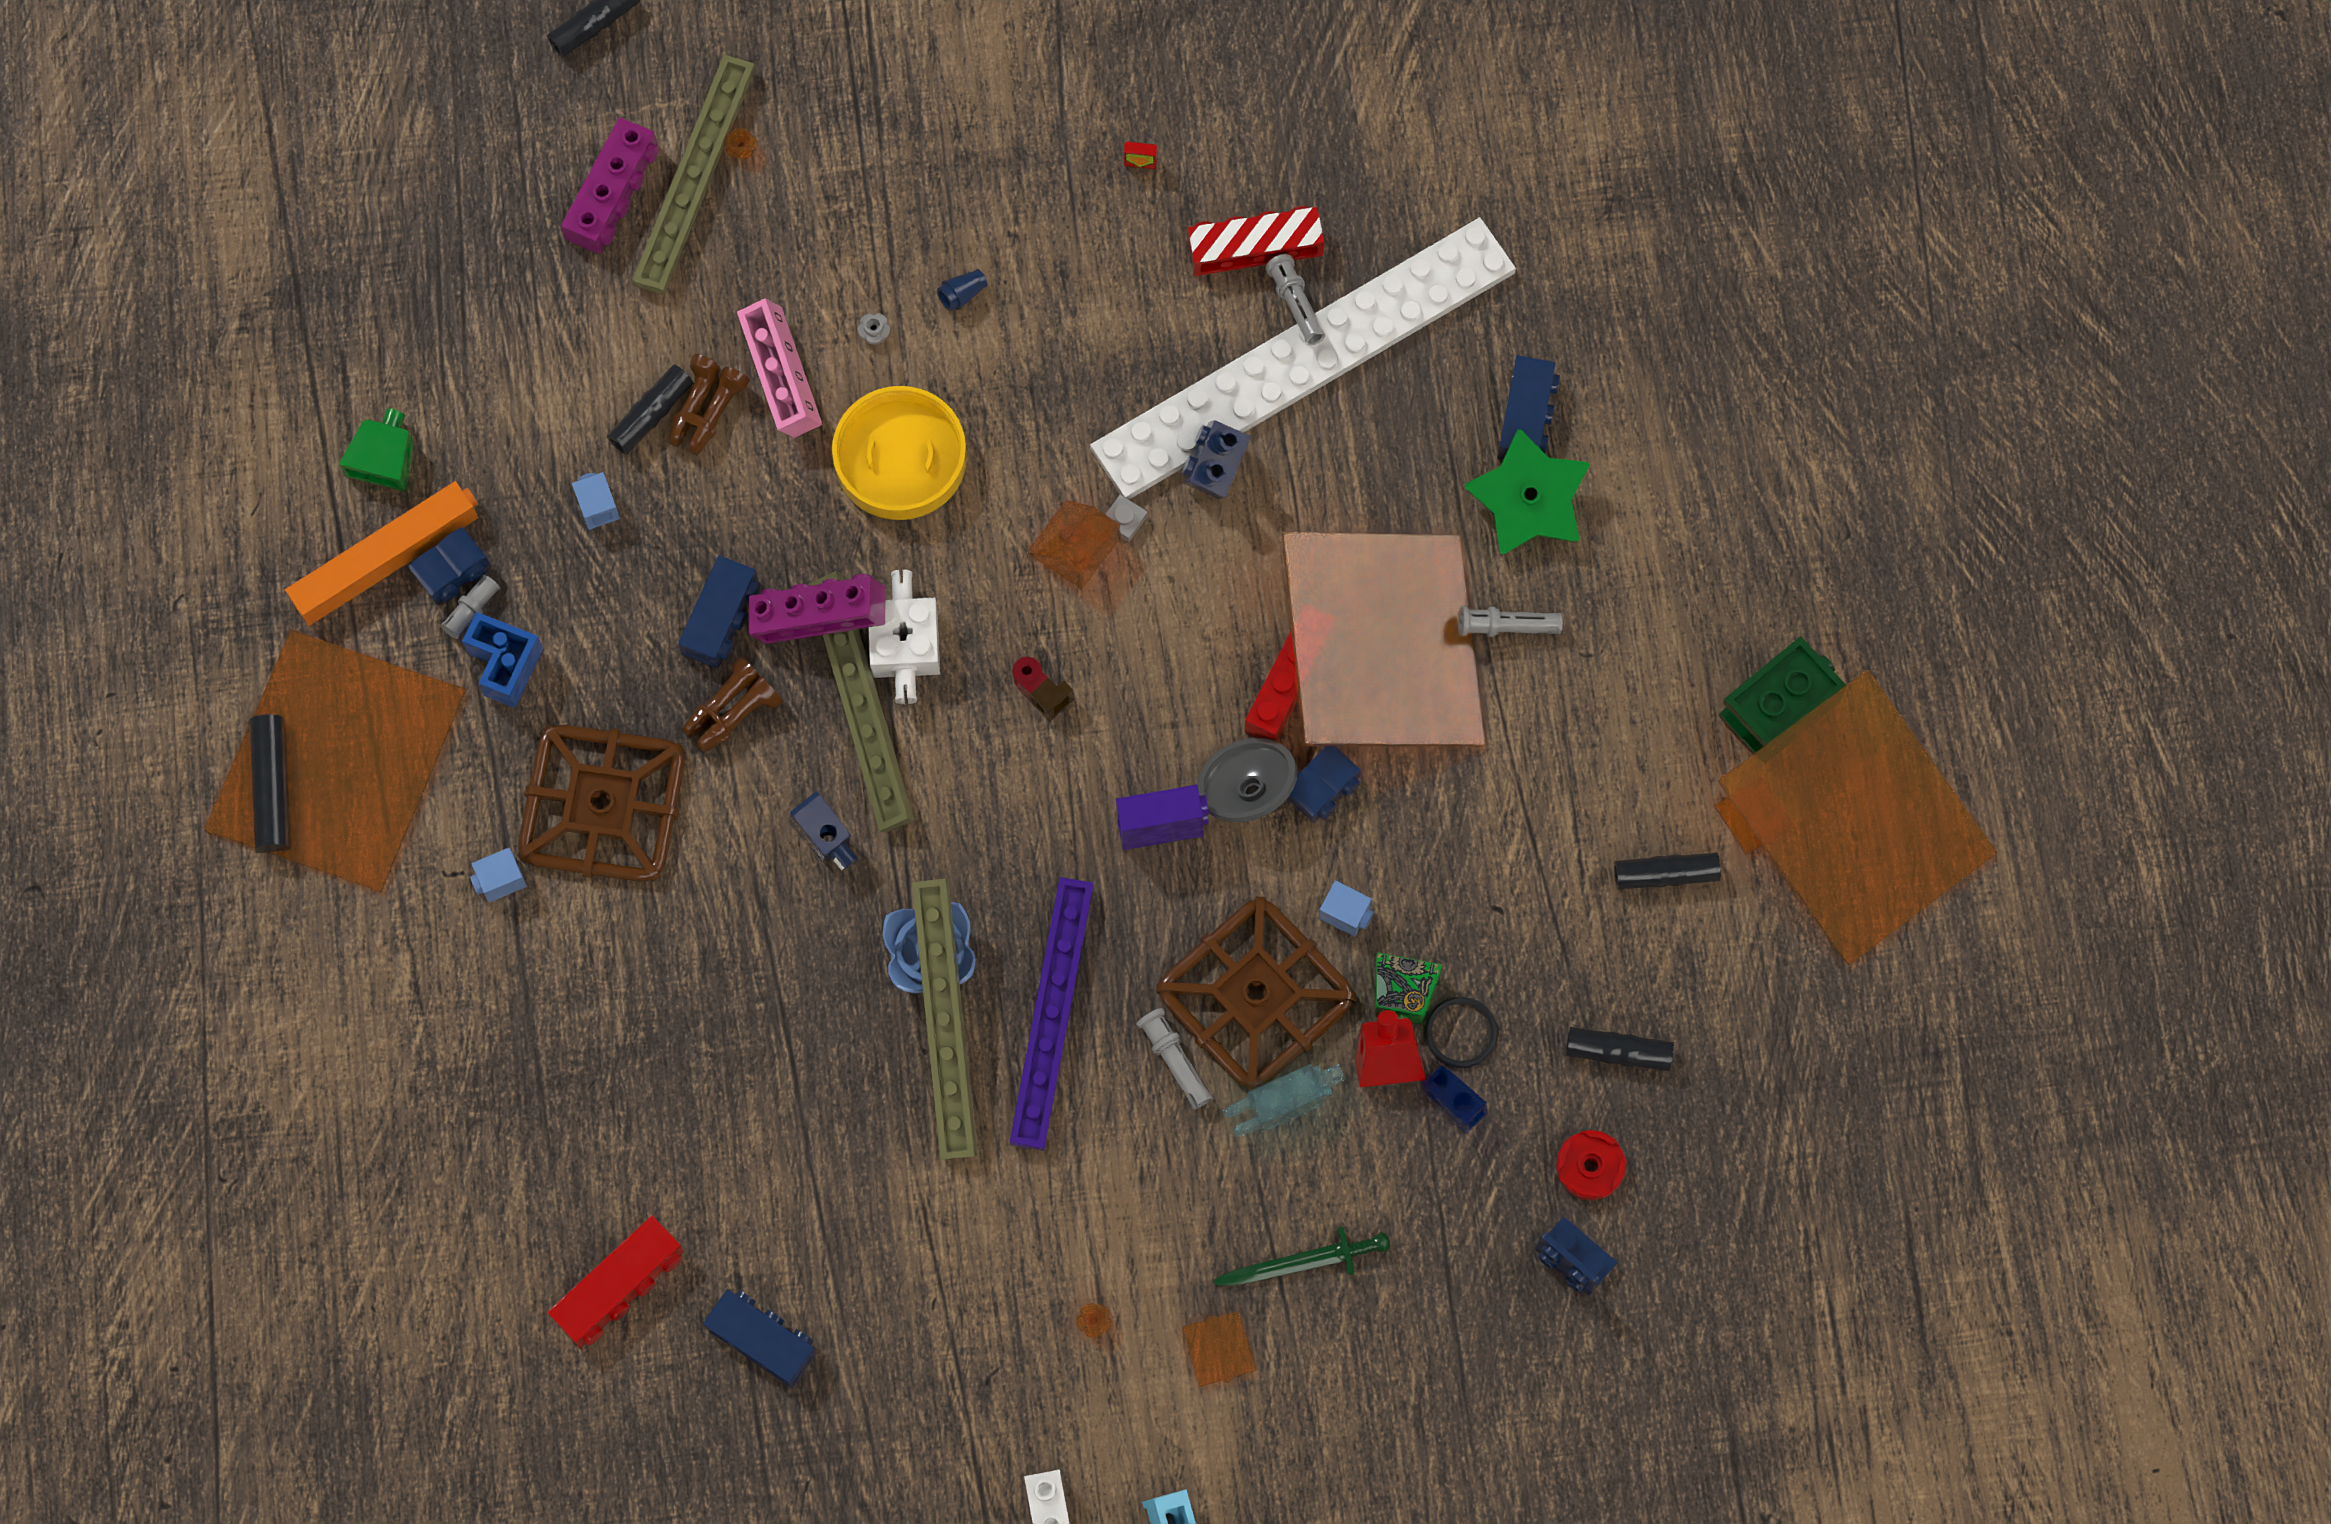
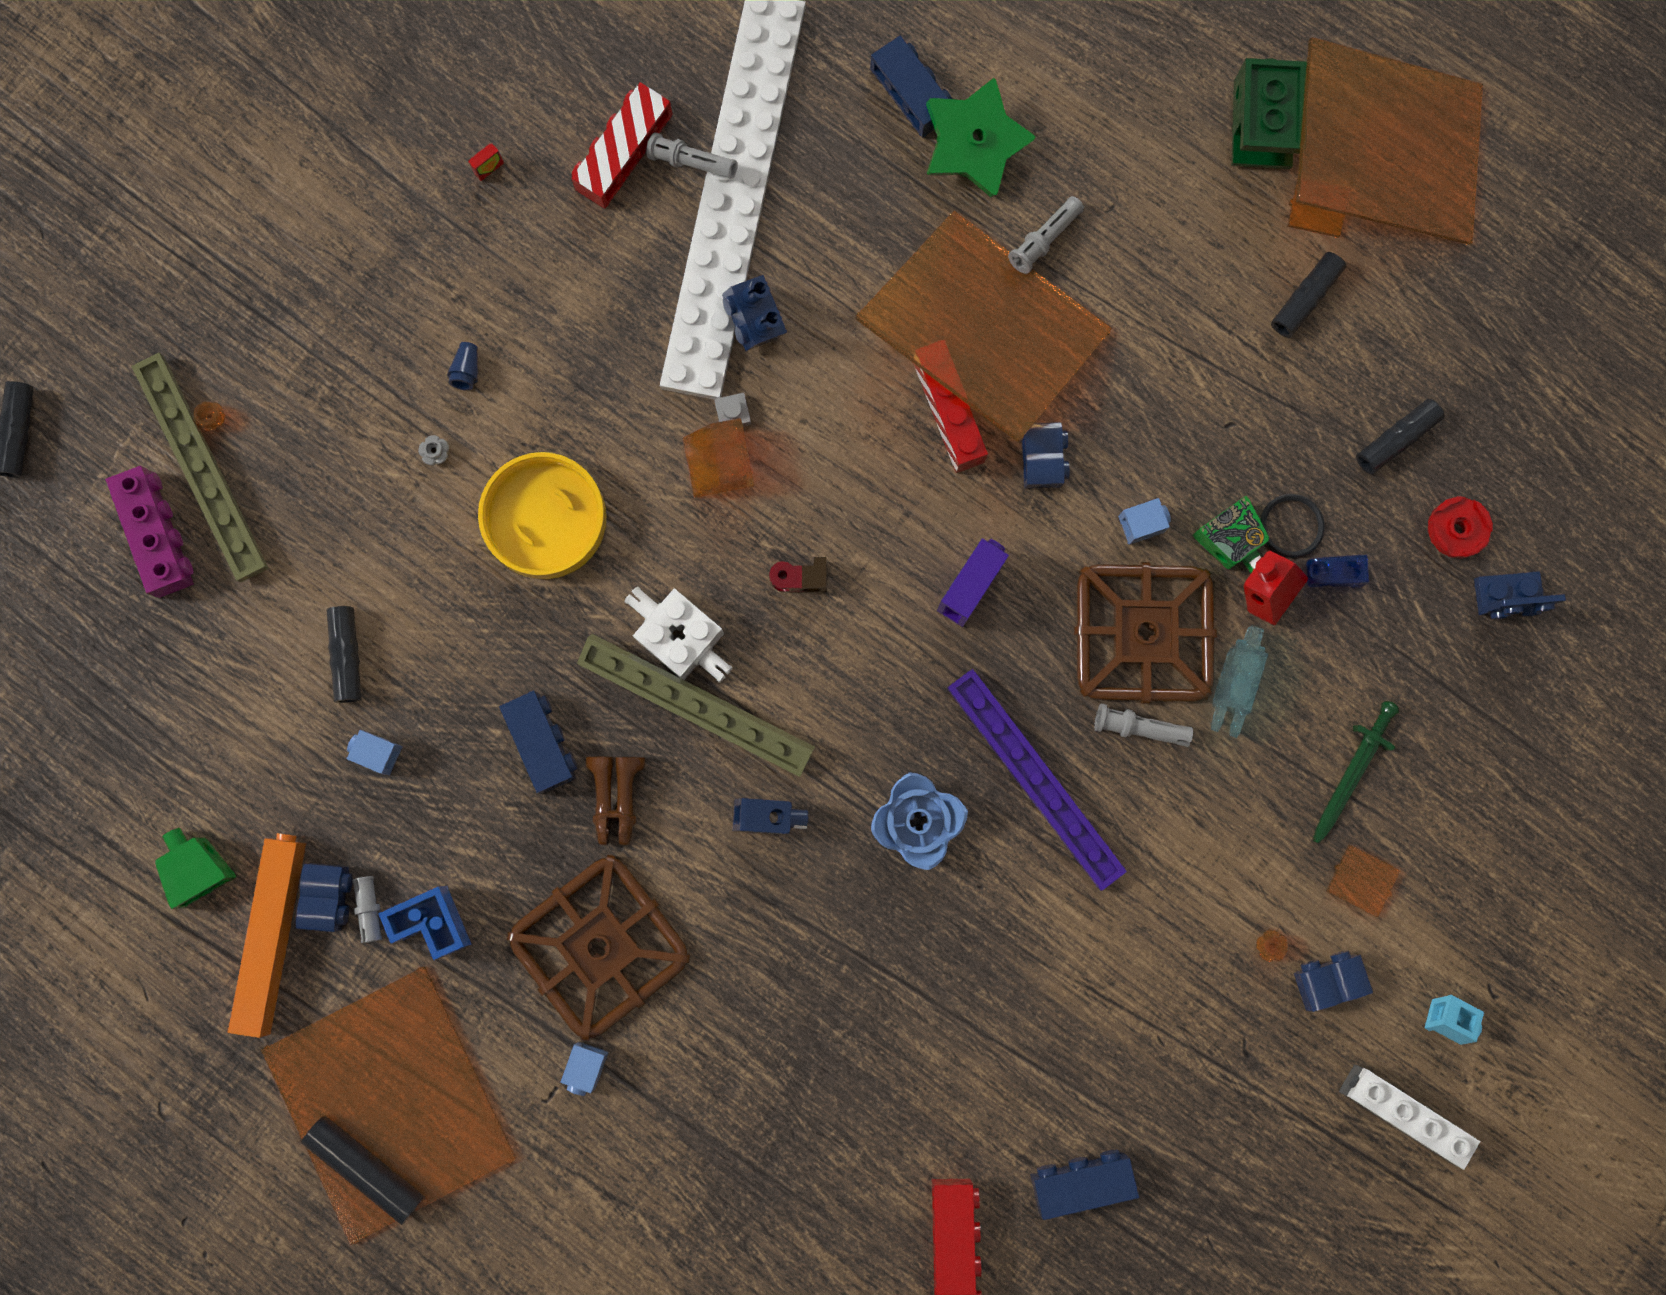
camera: 50 degrees left, 10 degrees up
(706, 373) = (356, 593): reddish brown piece -> none
(779, 368) = (401, 539): bright pink brick -> none
(817, 609) = (605, 675): magenta brick -> none
(944, 1019) = (980, 857): olive plate -> none
(1109, 1391) = (1333, 981): none -> dark blue brick
(1247, 779) = (988, 490): dark grey dish -> none

